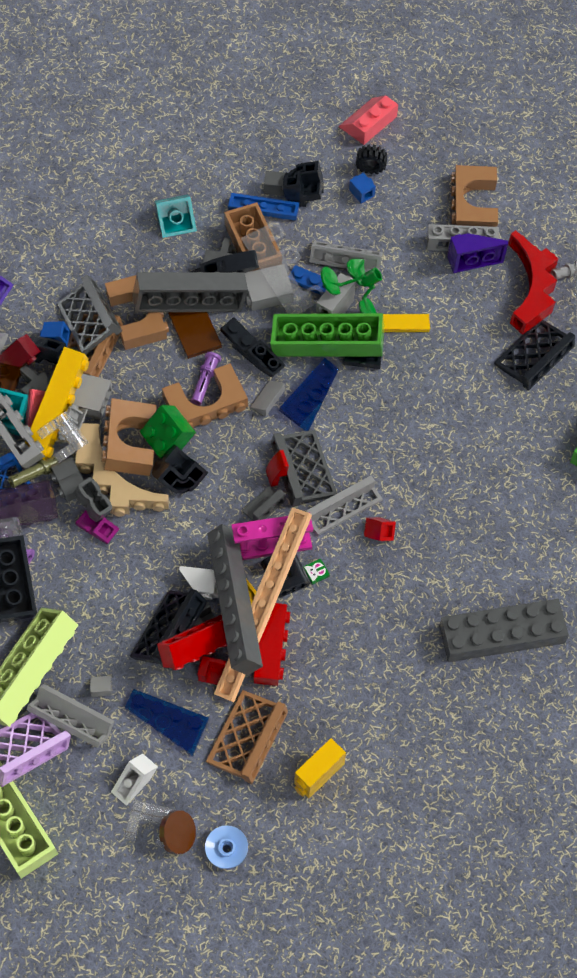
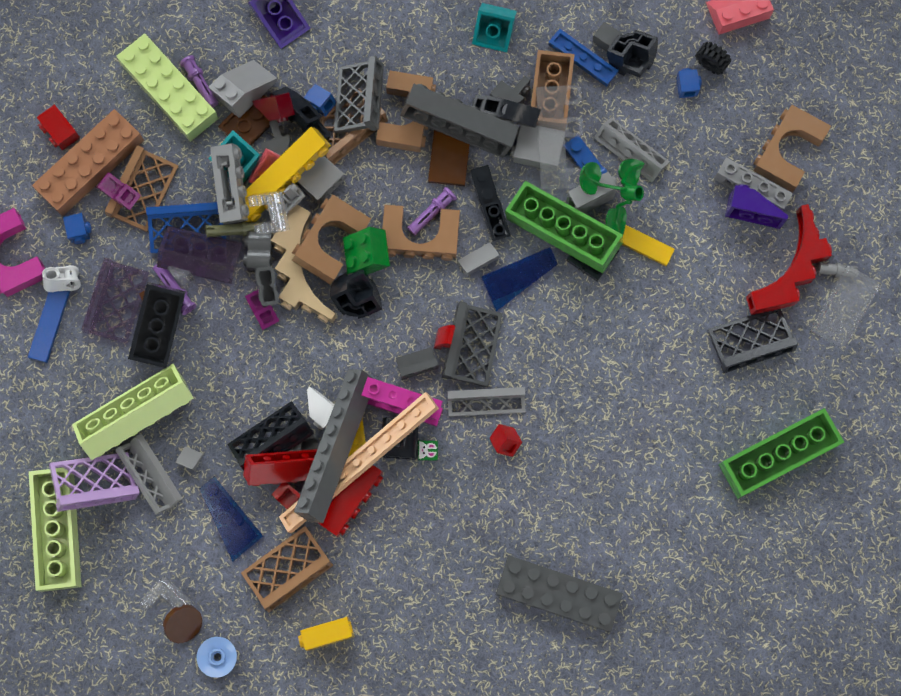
camera: 30 degrees right, 15 degrees up
(134, 778) = (173, 556): white slope -> none

